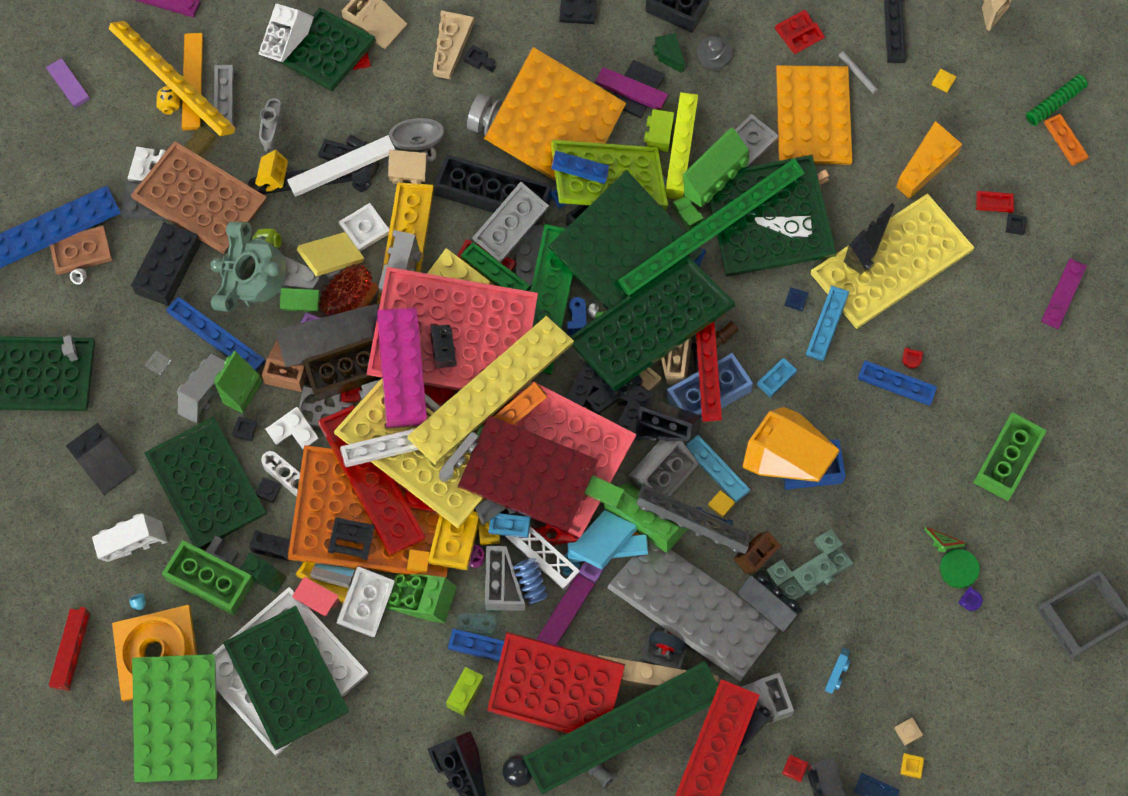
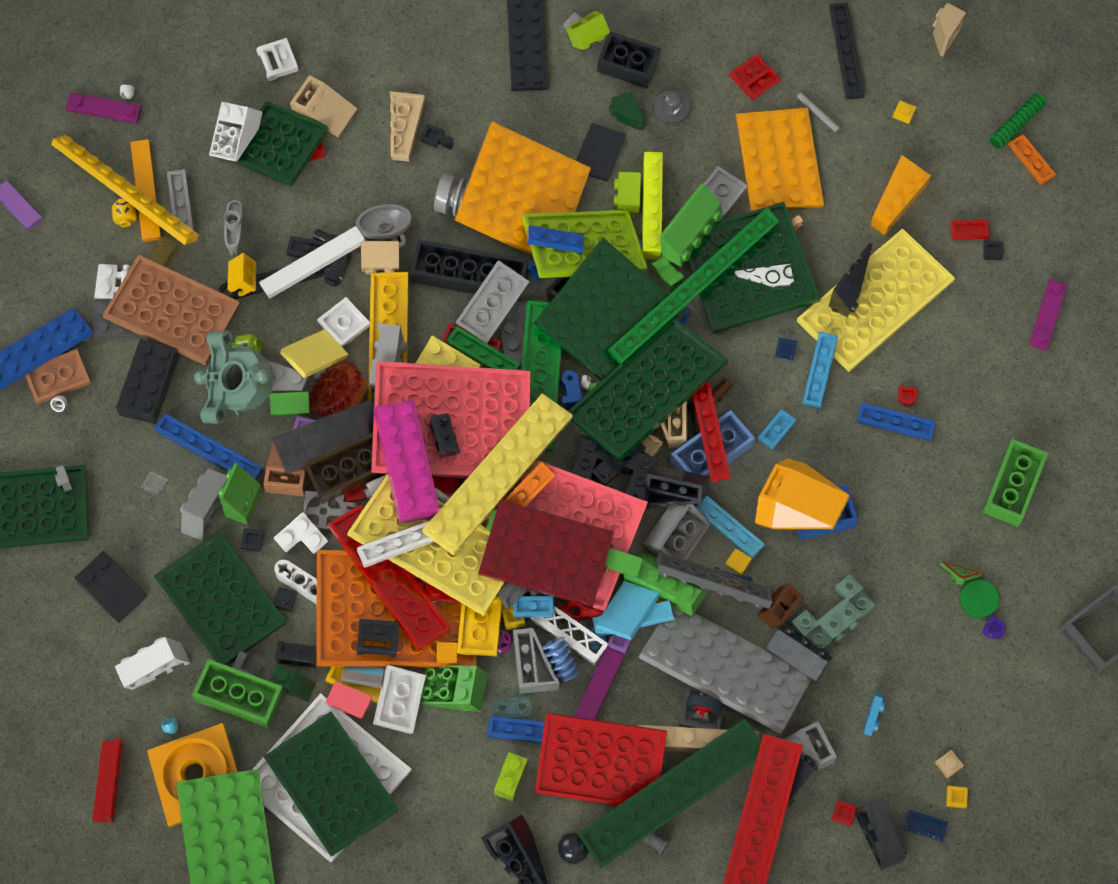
camera: 10 degrees left, 0 degrees up
(457, 458) = (475, 546): light grey hinge -> none
(631, 89) = (594, 152): magenta tile -> none

